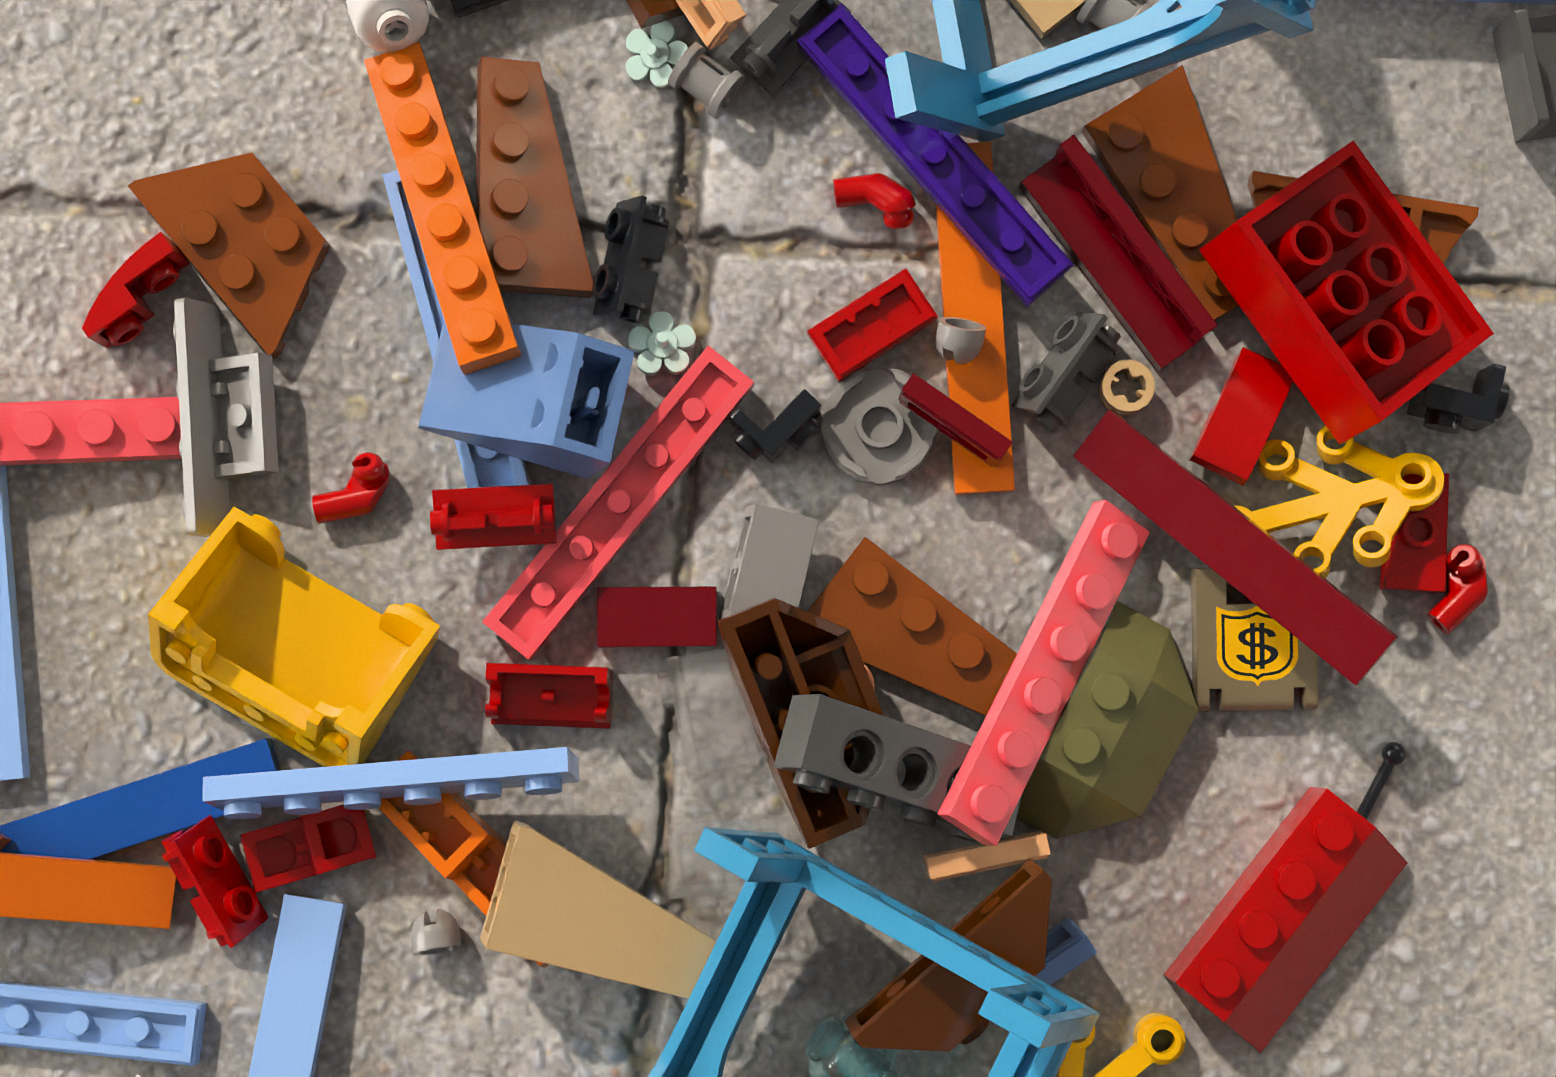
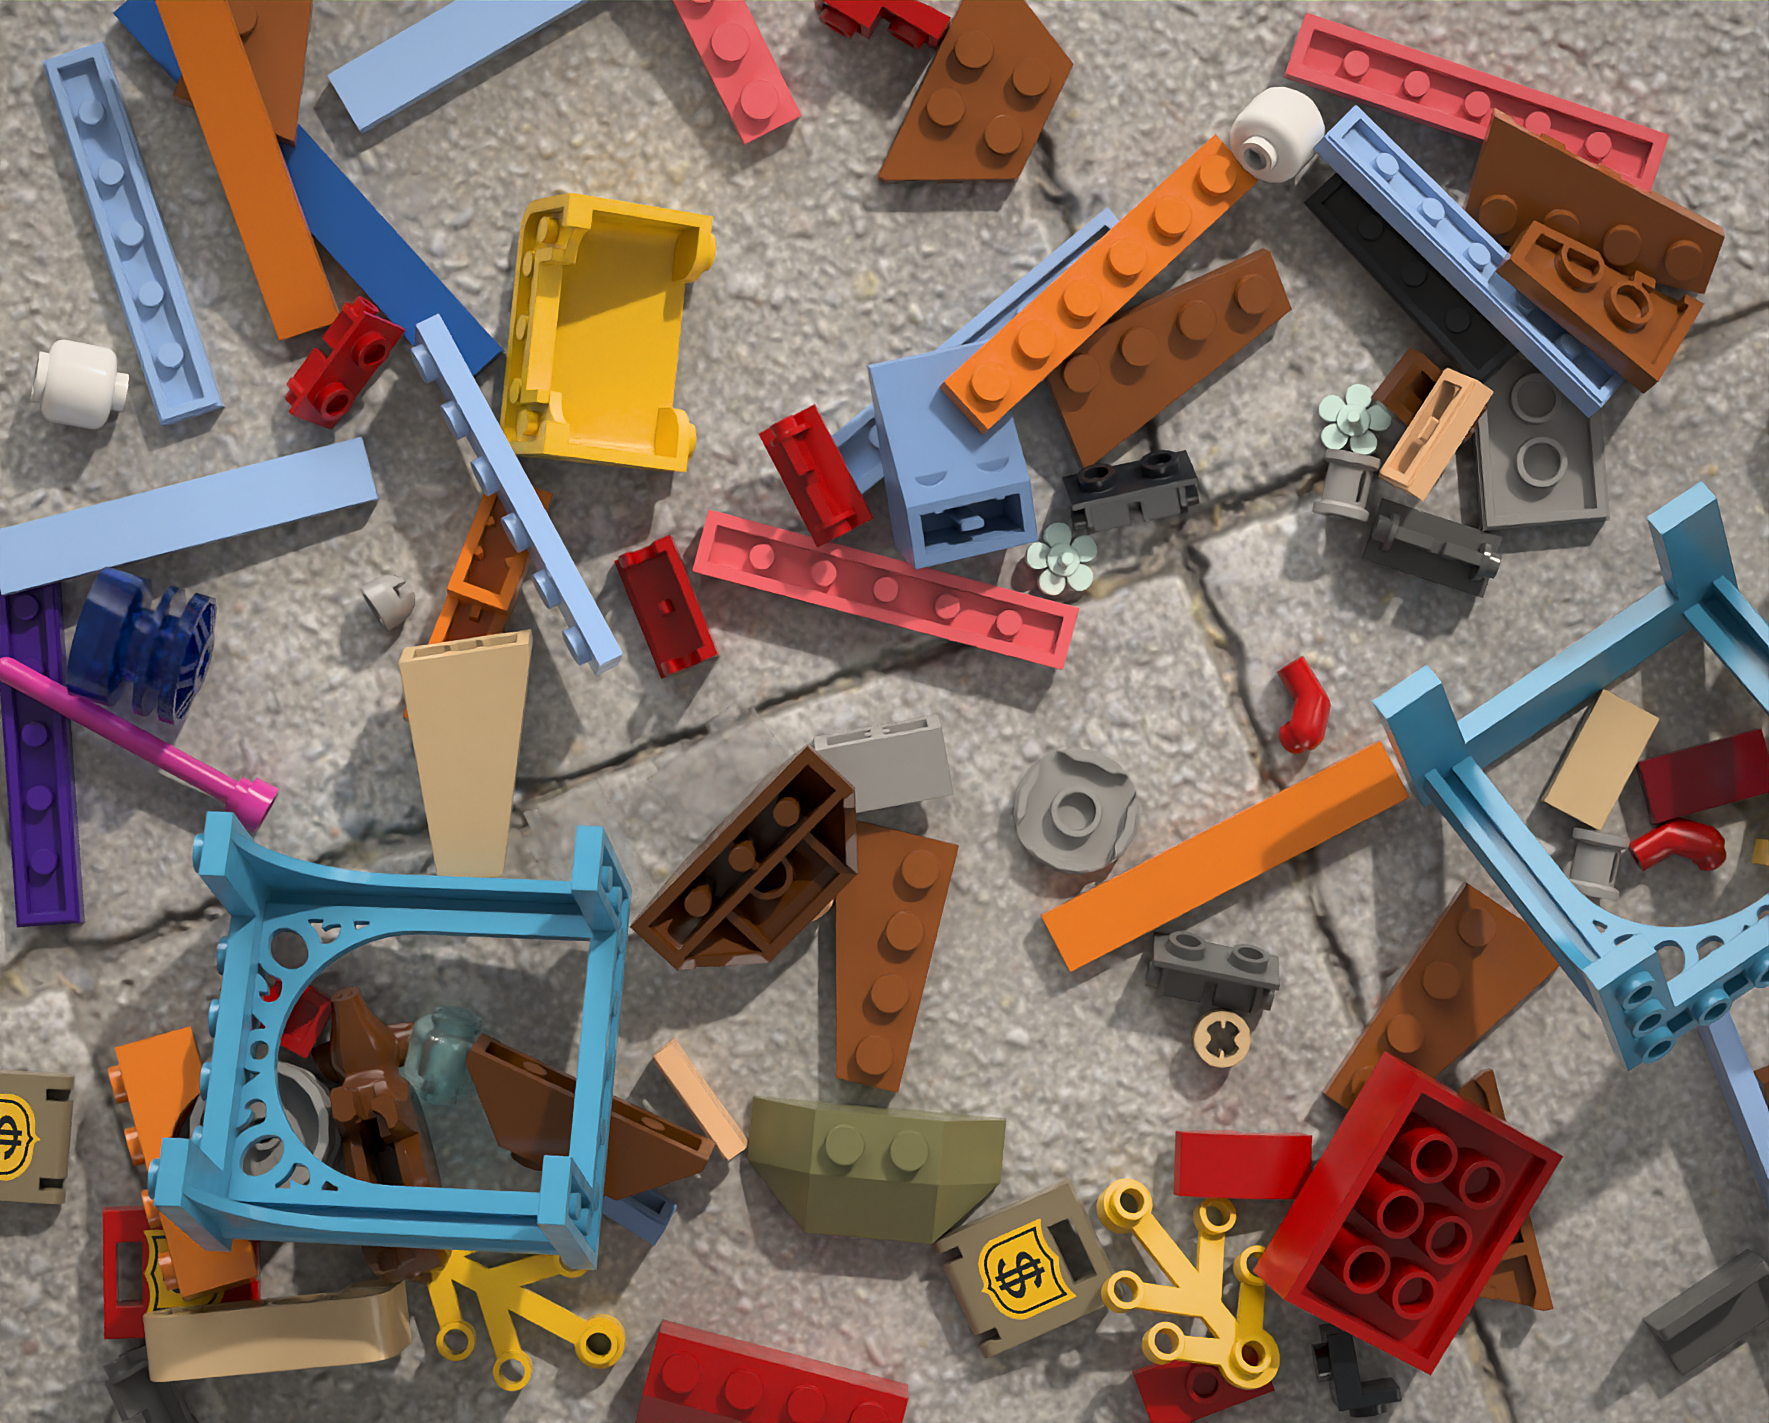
camera: 65 degrees right, 5 degrees up
(223, 415) = (797, 162): light grey bracket -> none
(306, 846) = (415, 436): red slope -> none
(359, 496) = (781, 329): red arm -> none
(656, 617) = (790, 676): dark red tile -> none
(792, 427) = (1034, 728): black bracket -> none
(815, 746) = (747, 890): dark grey brick -> none
(872, 325) = (1171, 760): red plate -> none
(937, 160) = (1362, 756): dark purple tile -> none
(954, 421) = (1108, 885): dark red tile -> none
(959, 339) = (1194, 853): light grey hinge -> none
(1043, 674) = (901, 1079): coral plate -> none
(1117, 255) = (1348, 971): dark red fence -> none
(1236, 547) = (1105, 1209): dark red tile -> none

